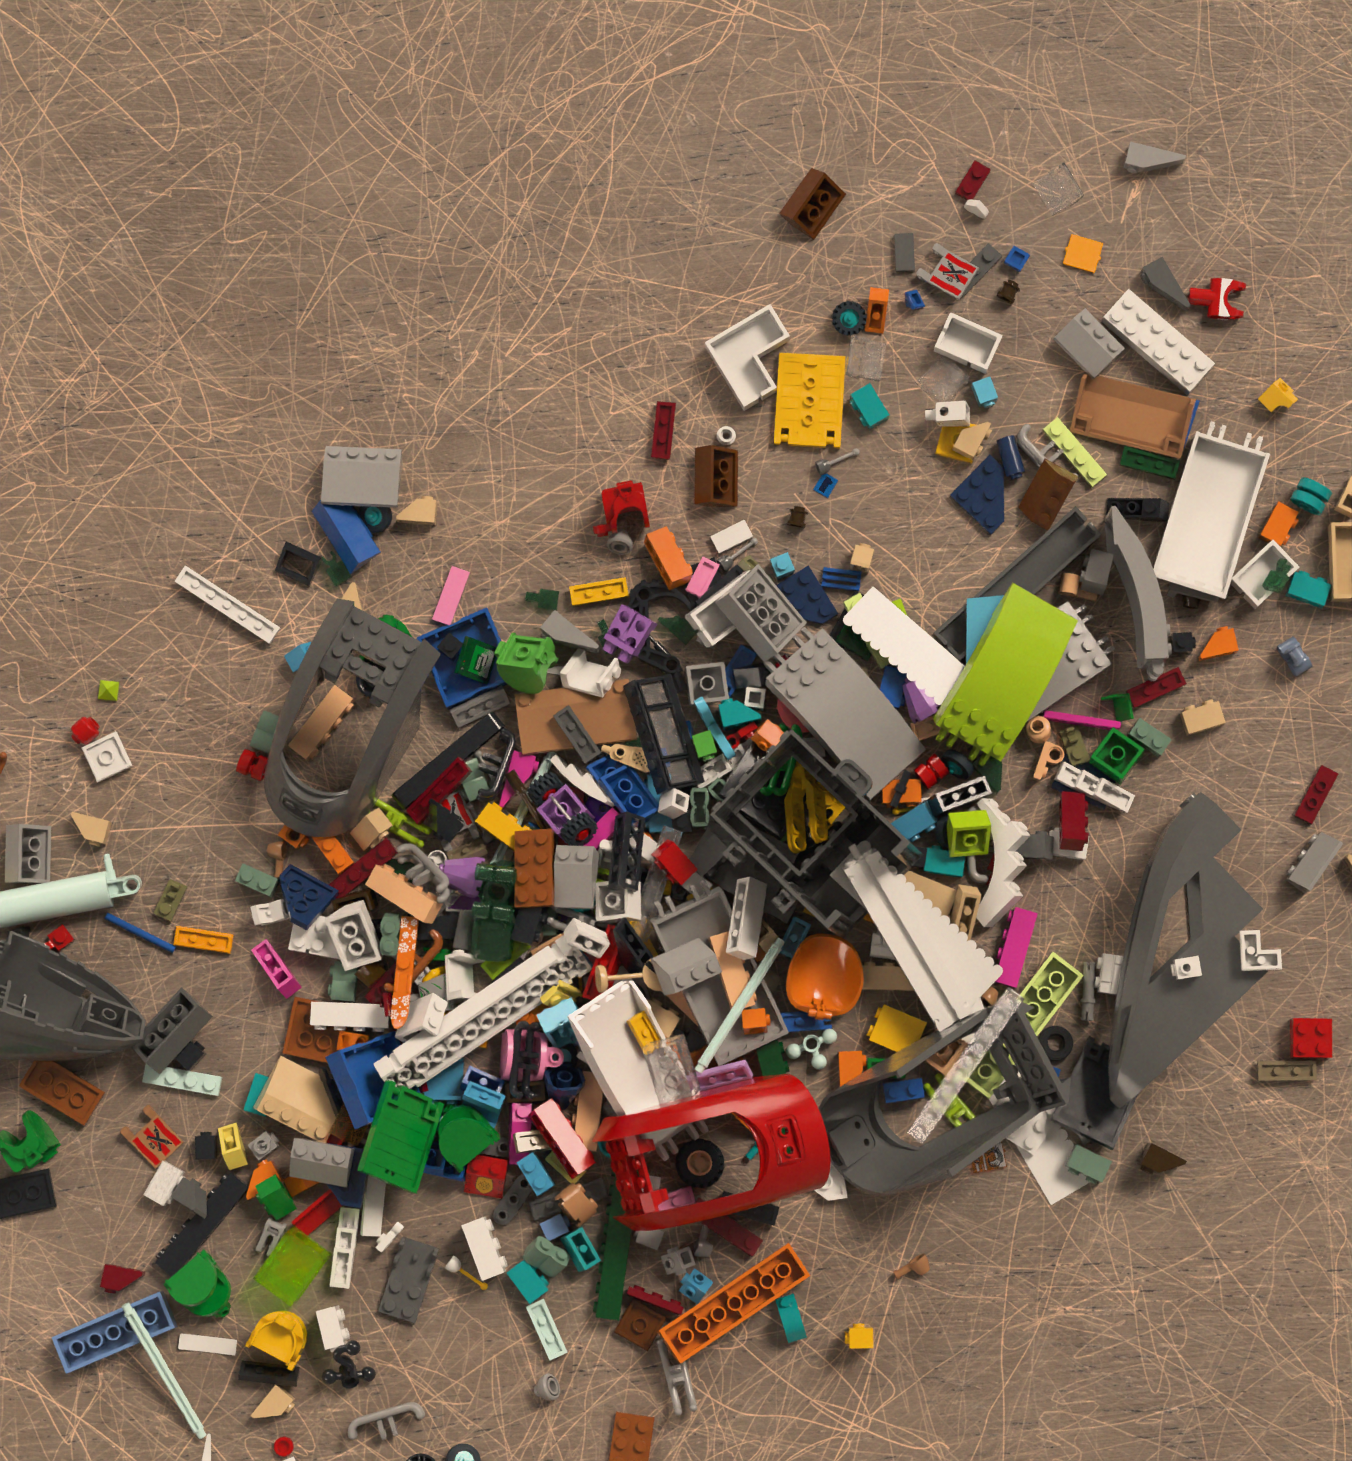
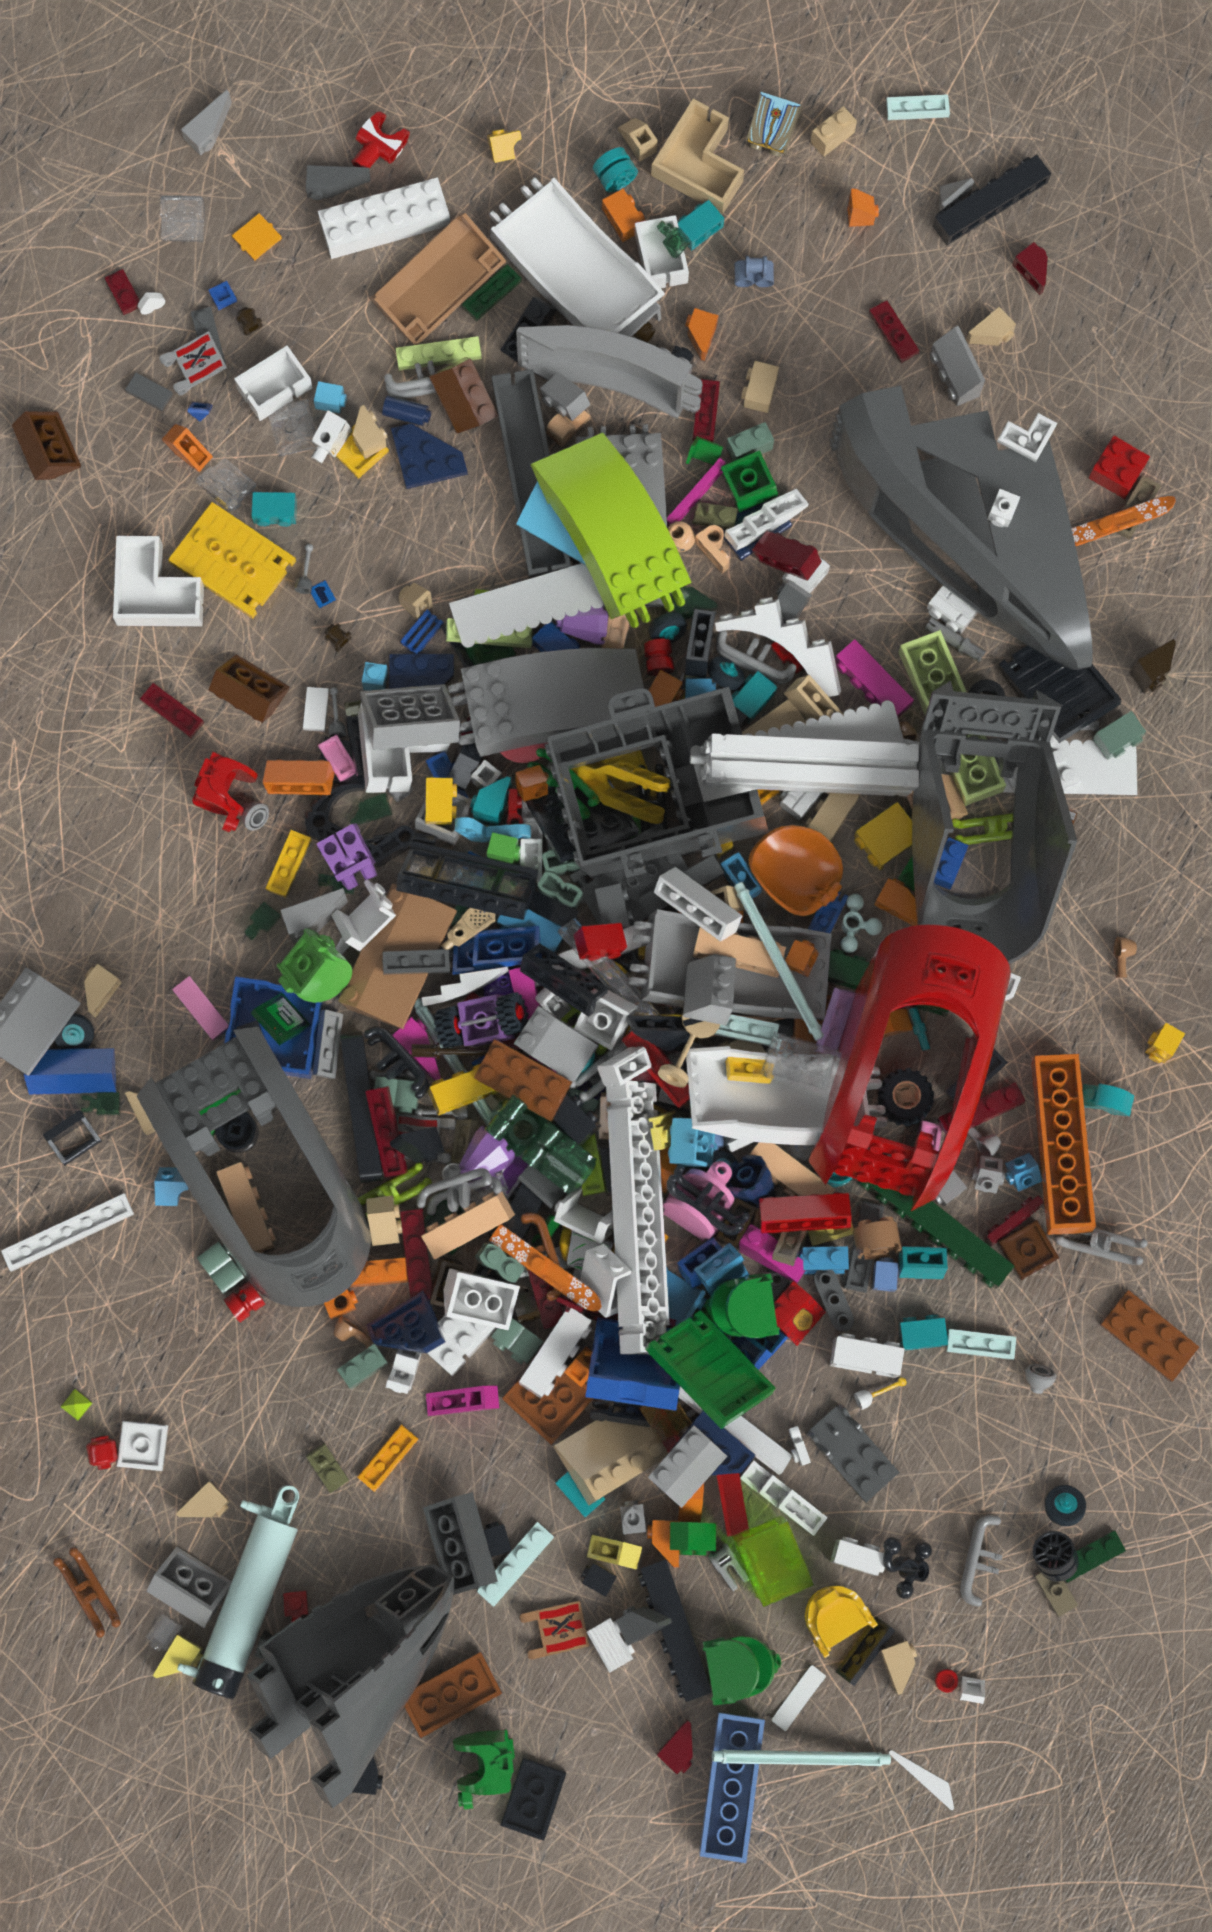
camera: 70 degrees left, 5 degrees down
(139, 932) = (340, 1519): blue bar -> none
(546, 1256) = (910, 1300): sand green brick -> none
(673, 803) = (542, 909): white brick -> none
(677, 1014) = (748, 1030): none -> light aqua plate
(709, 676) = (439, 800): none -> yellow brick
(723, 430) = (212, 651): white plate -> none
(848, 318) = (177, 476): black wheel -> none
(900, 788) = (658, 690): black bar -> none
(965, 1065) = (965, 781): clear plate -> none
(968, 833) = (741, 653): lime slope -> none
(1089, 343) = (345, 276): light grey slope -> none
(1260, 1059) = (1122, 519): none -> orange piece

